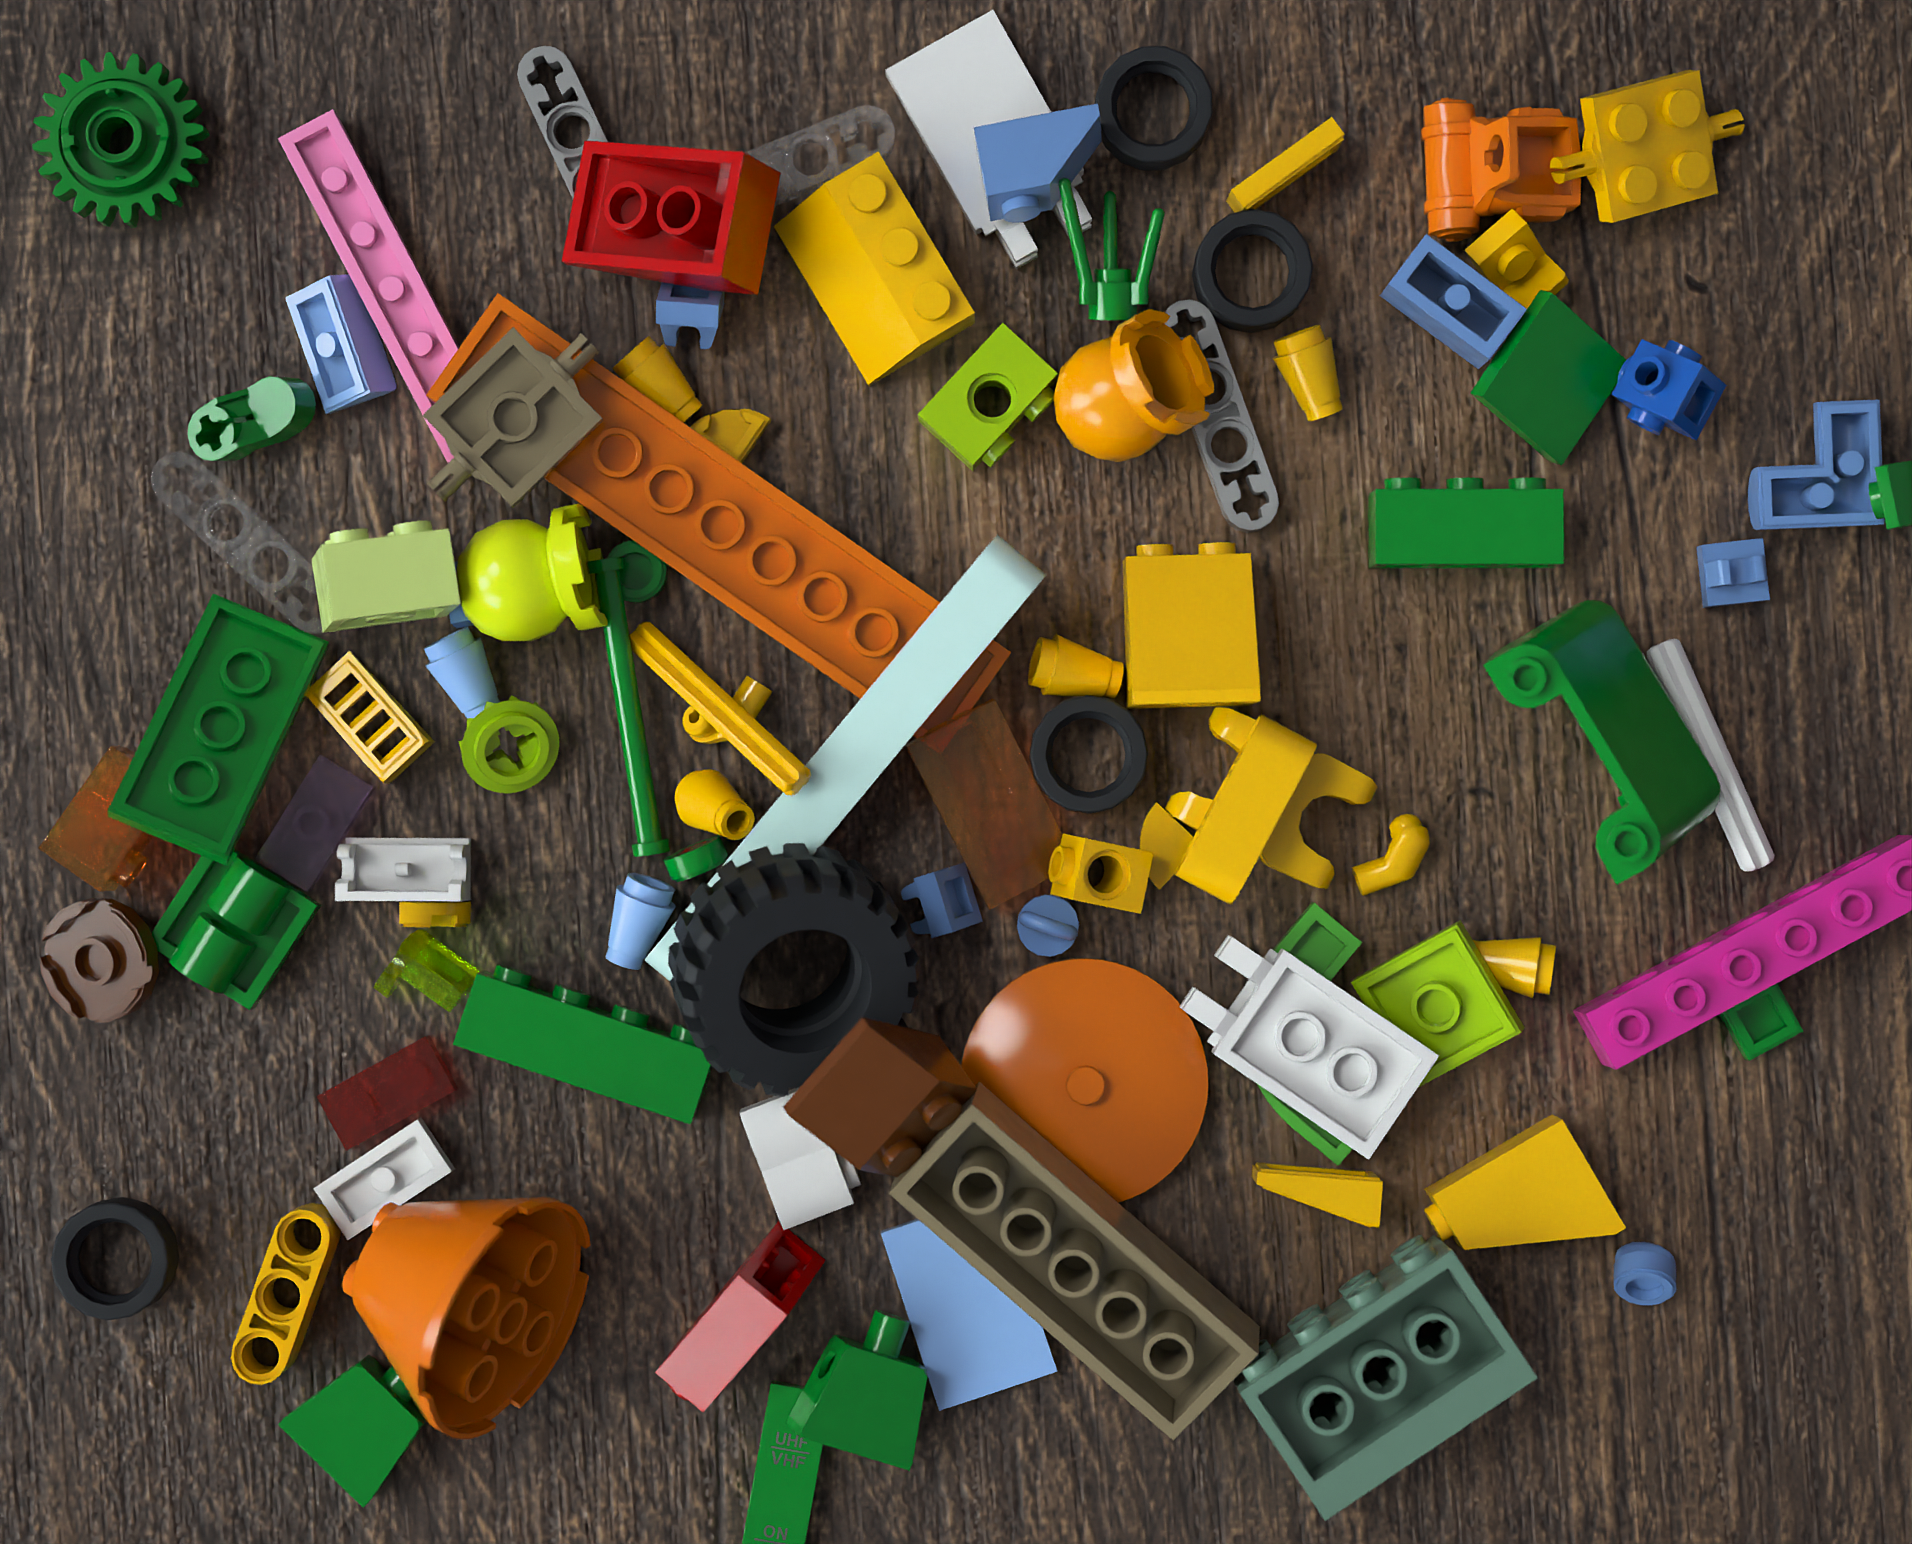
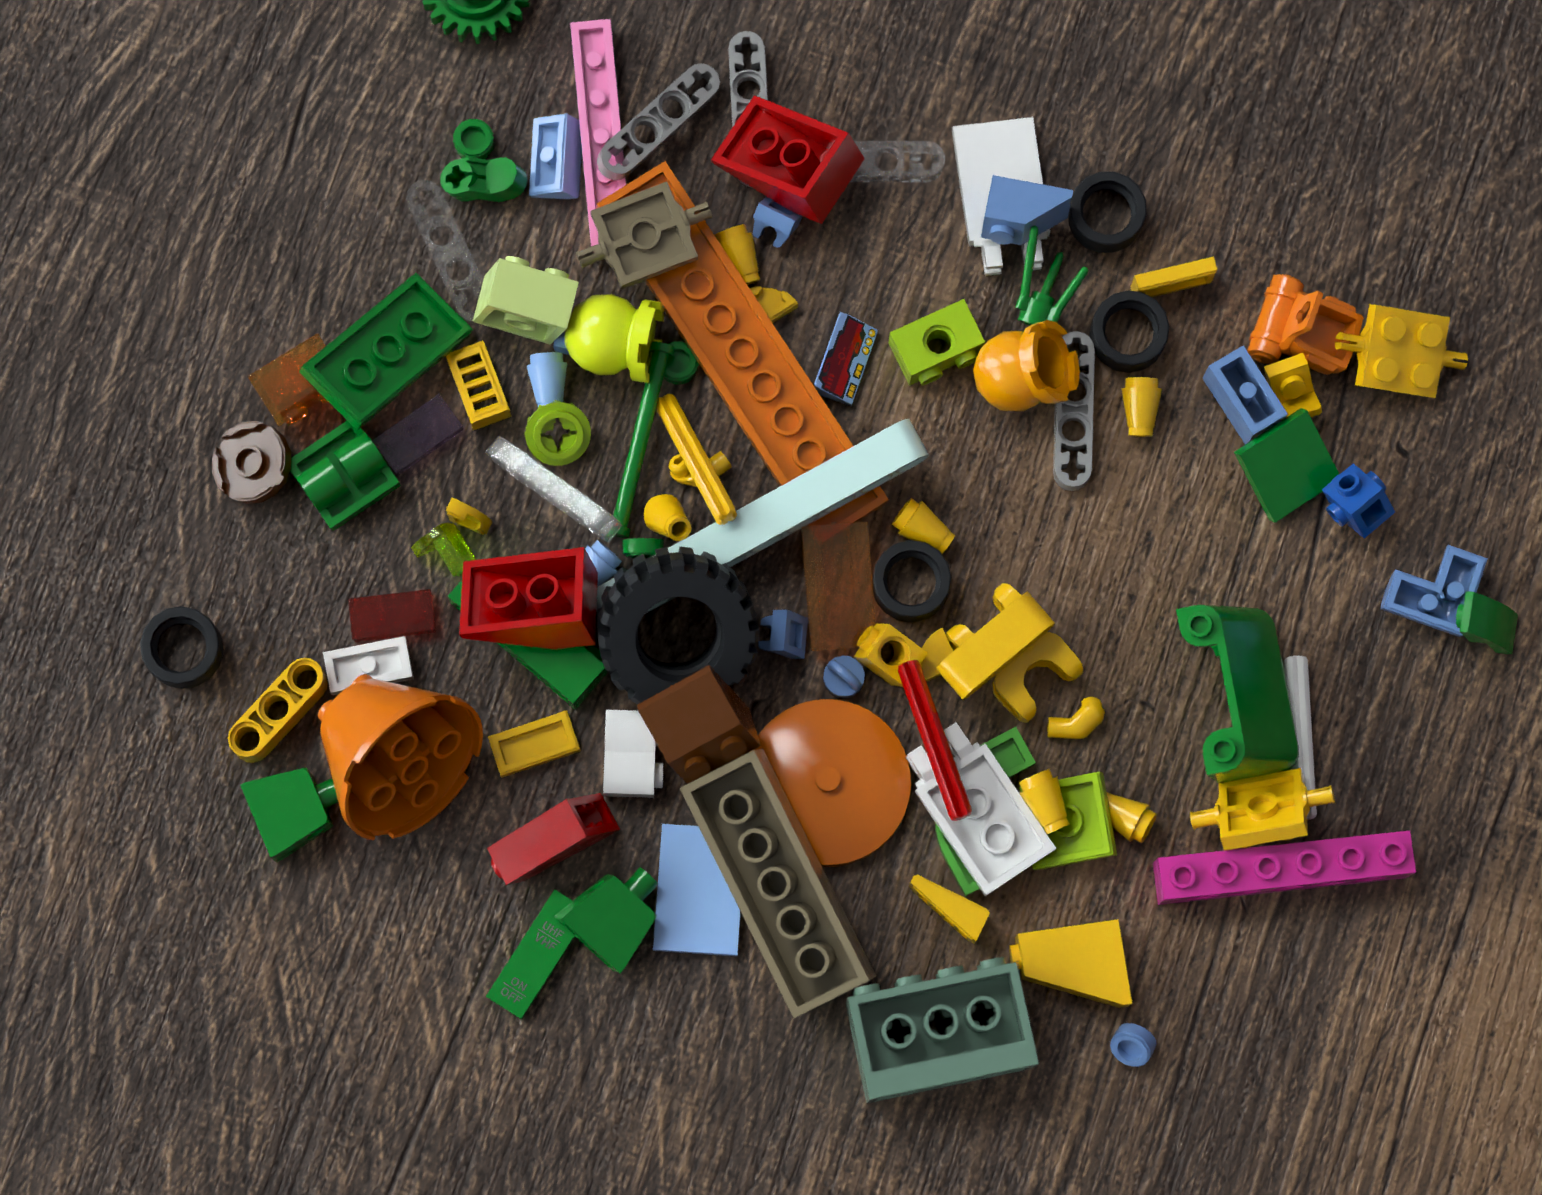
camera: 15 degrees right, 10 degrees down
(213, 364) = (473, 139): none -> green tile
(404, 869) = (449, 478): white hinge -> none
(459, 232) = (660, 123): none -> light grey beam
(537, 829) = (553, 489): none -> clear beam
(571, 1010) = (531, 599): none -> red slope
(658, 1191) = (534, 744): none -> yellow tile
(868, 472) = (845, 359): none -> slope
(874, 269) = (898, 240): yellow slope -> none
(1190, 628) = (1003, 528): yellow slope -> none
(1214, 978) = (934, 740): none -> red axle
(1397, 994) = (1045, 800): none -> yellow cone
(1465, 525) = (1200, 535): green brick -> none
(1705, 888) = (1262, 809): none -> yellow plate
(1733, 573) = (1357, 632): medium blue tile -> none
(1761, 1022) = (1268, 914): green tile -> none

